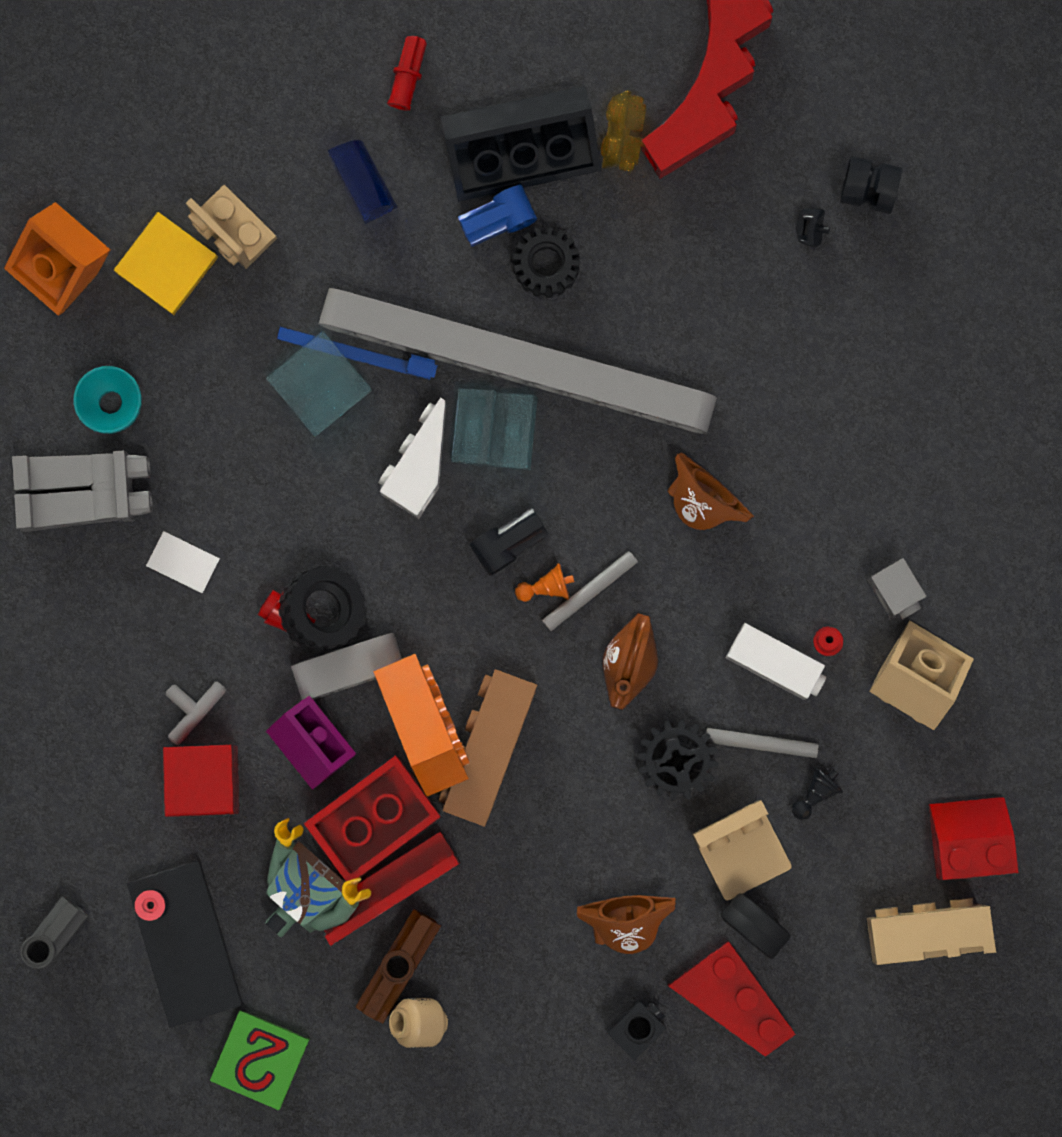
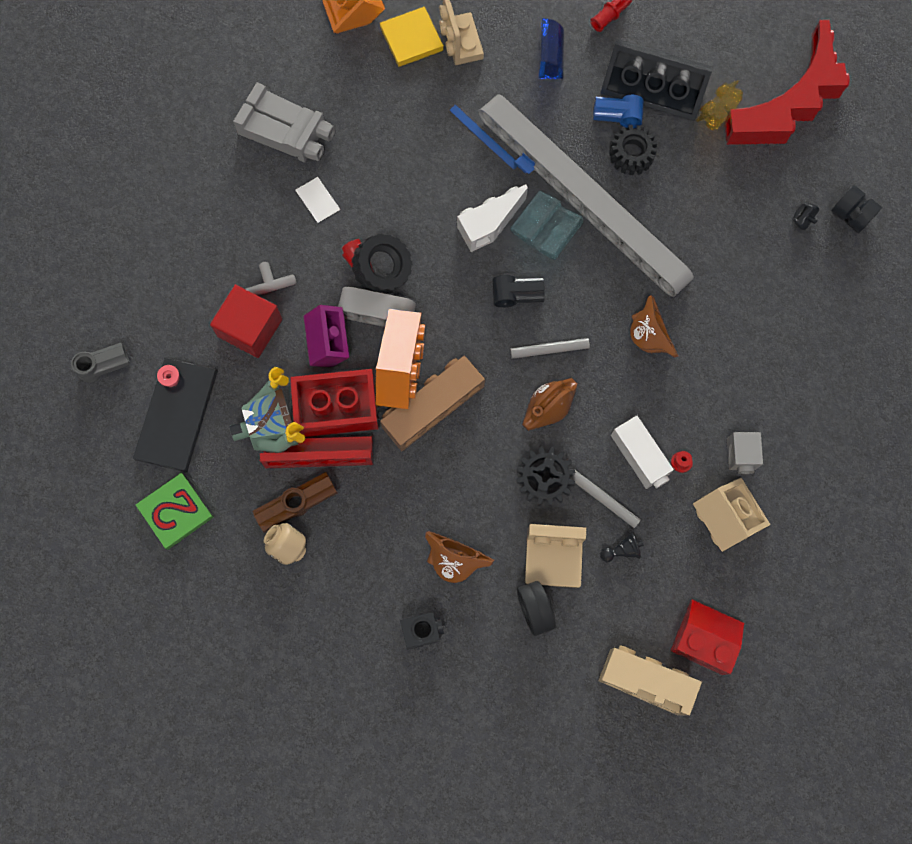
camera: 25 degrees right, 10 degrees down
(92, 389) = (331, 76): teal piece -> none
(318, 383) = (458, 144): clear light blue slope -> none
(550, 584) = (528, 330): orange piece -> none
(734, 998) = (495, 650): red wing -> none

